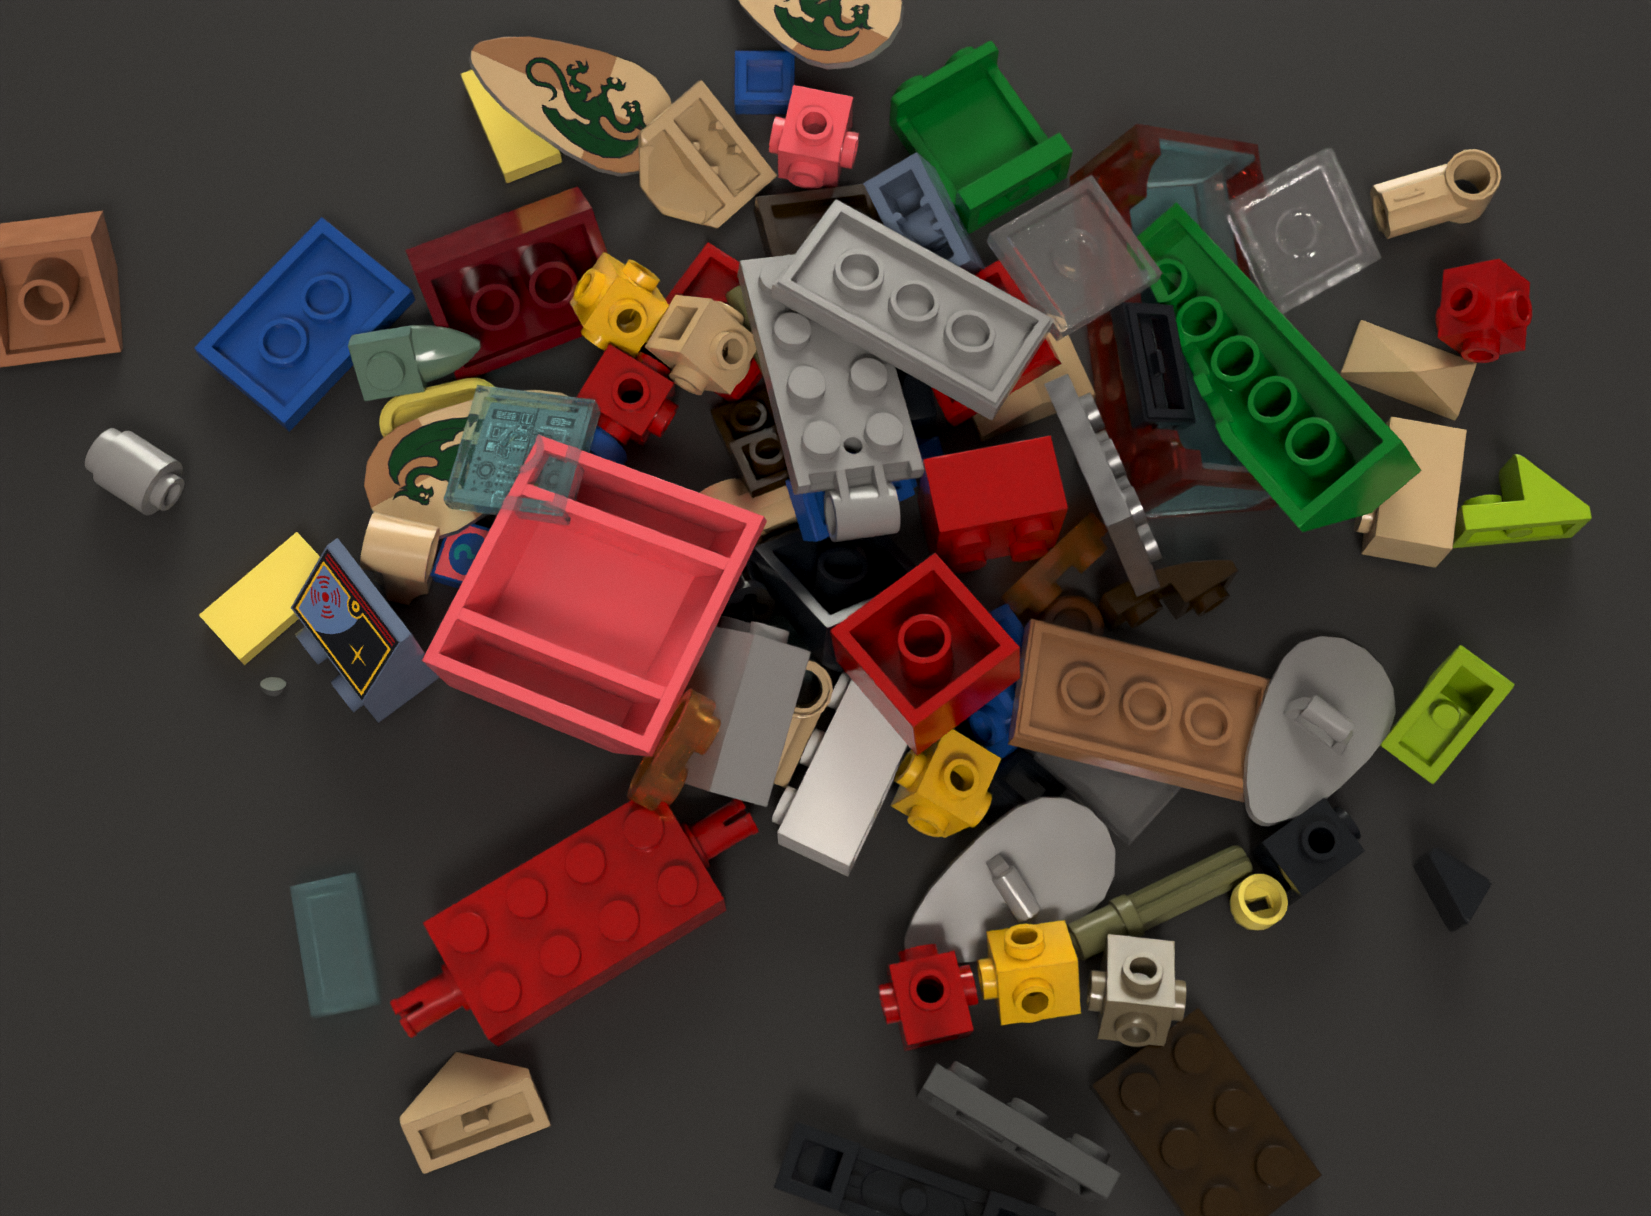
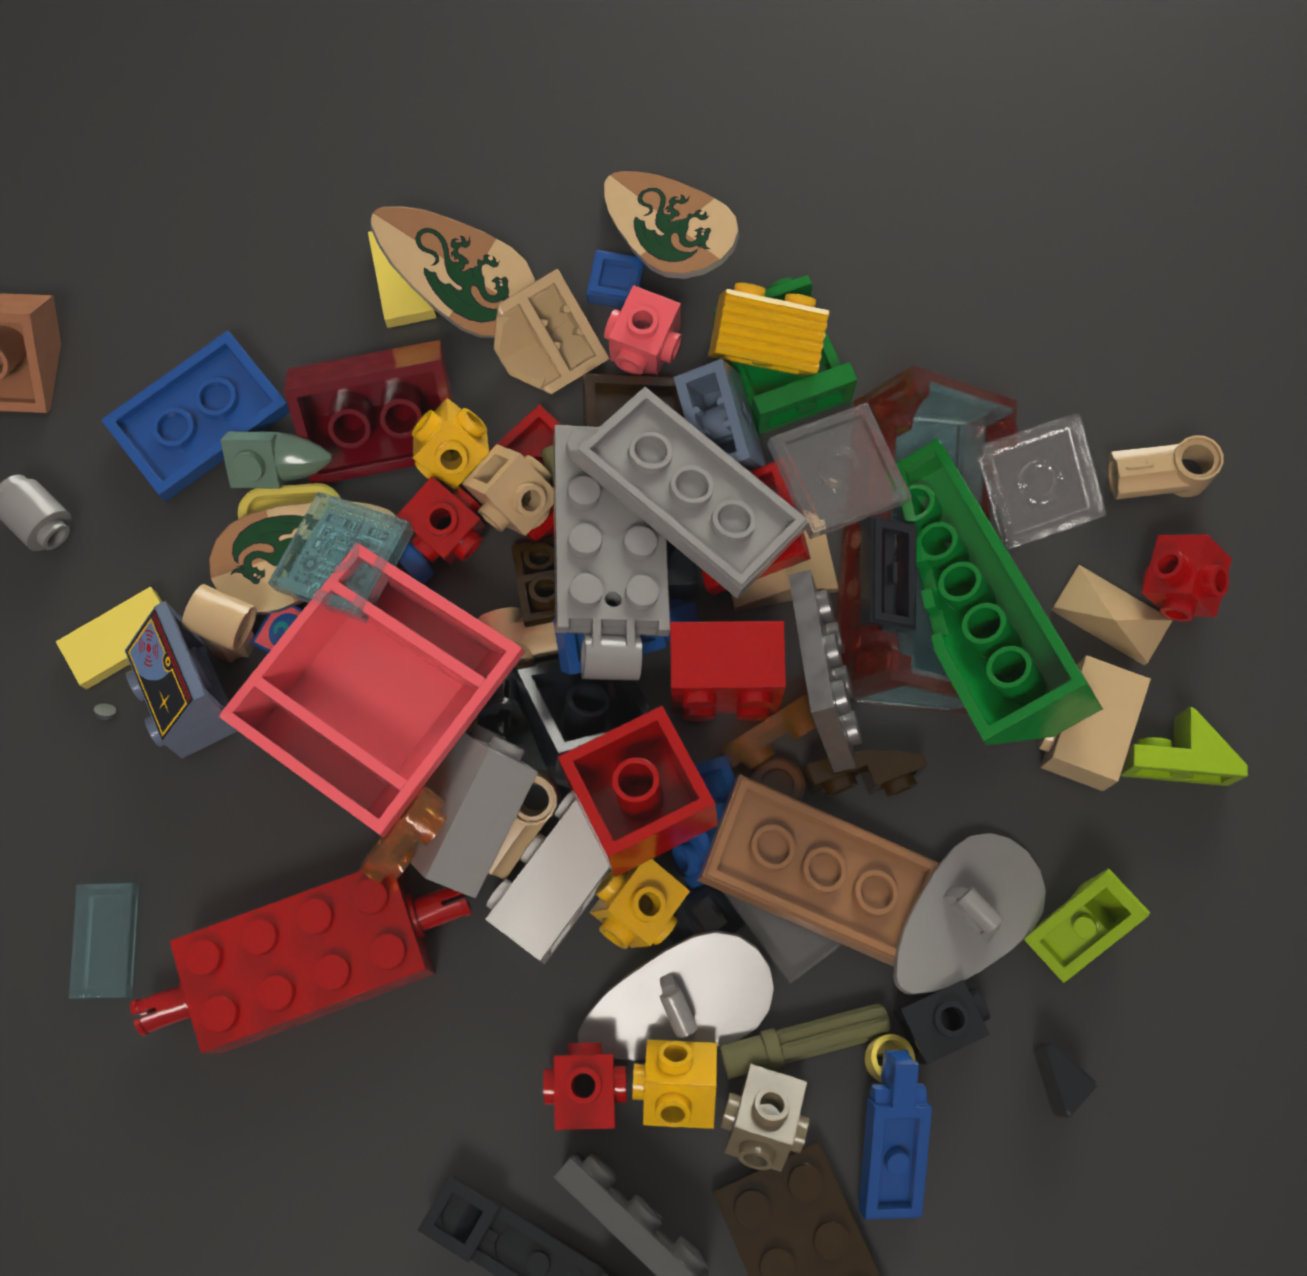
camera: 15 degrees right, 0 degrees up
(471, 1110) = (181, 1107): tan slope -> none
(961, 112) = (769, 331): none -> yellow brick
(1284, 988) = (895, 1142): none -> blue hinge

